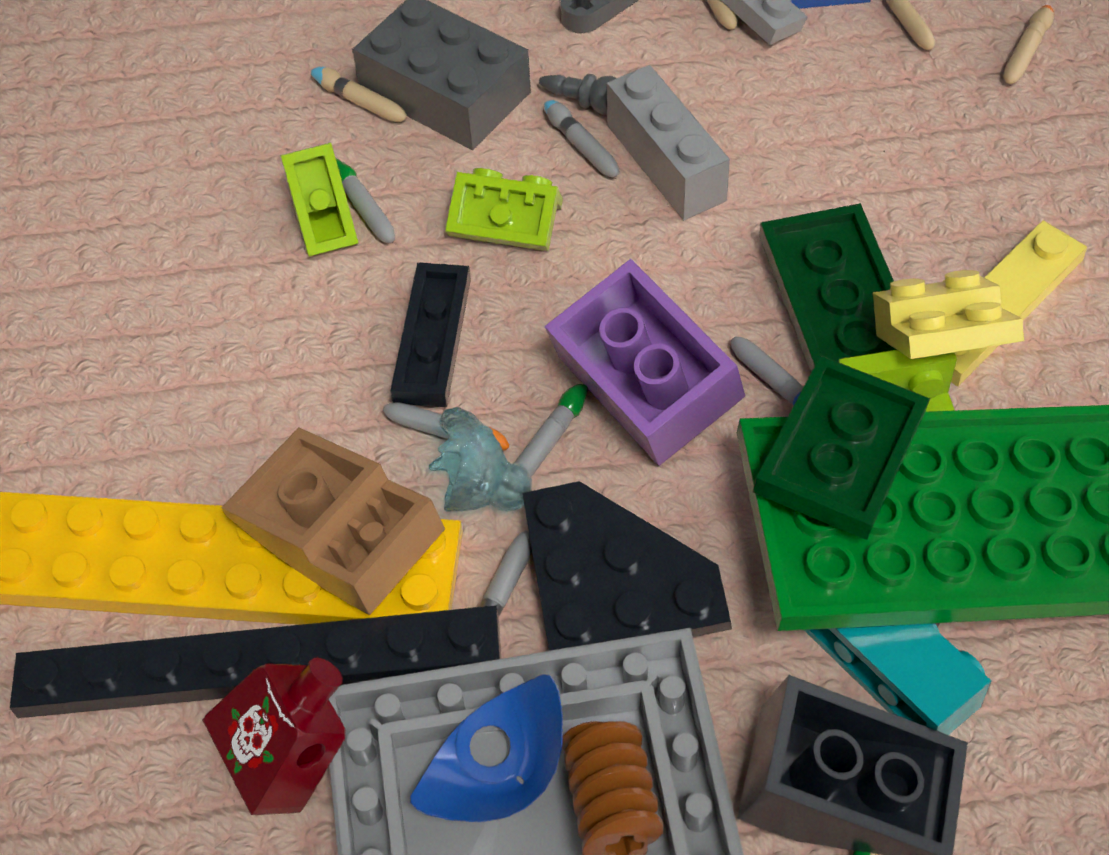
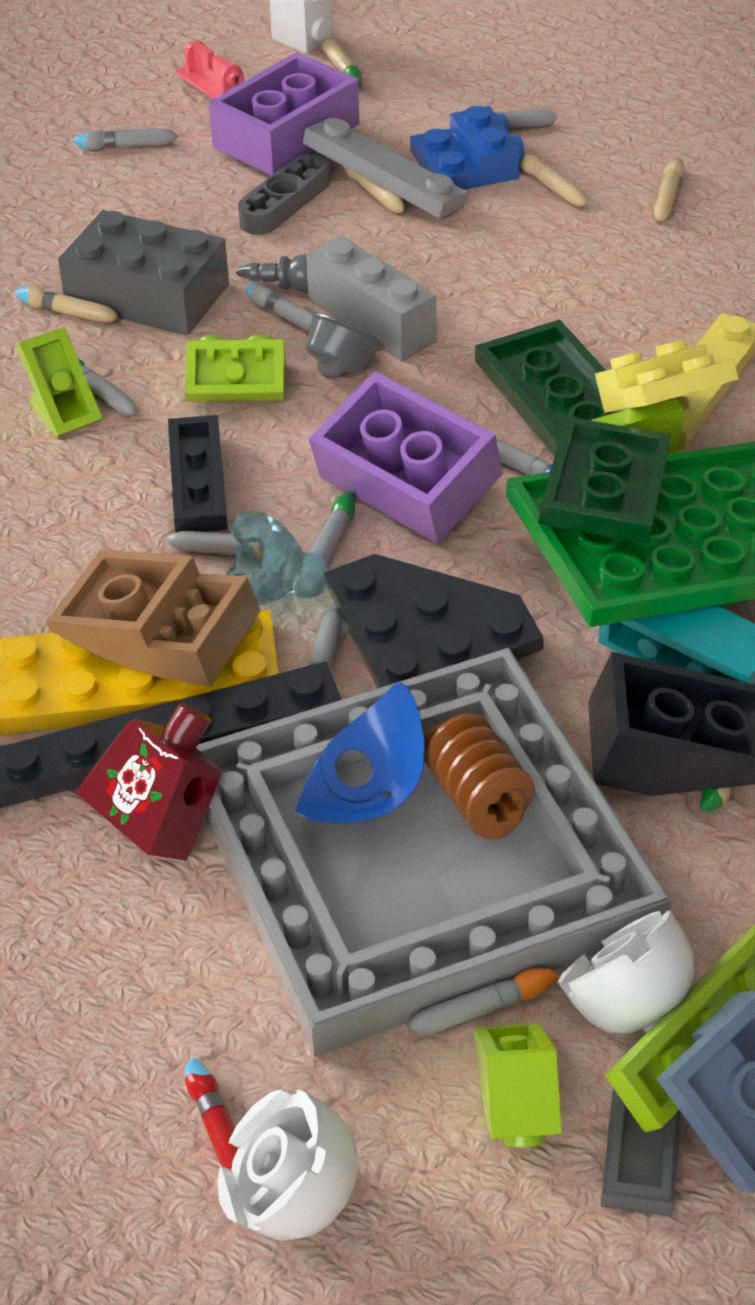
camera: 15 degrees left, 10 degrees down
(617, 193) = (339, 345): none -> dark grey piece

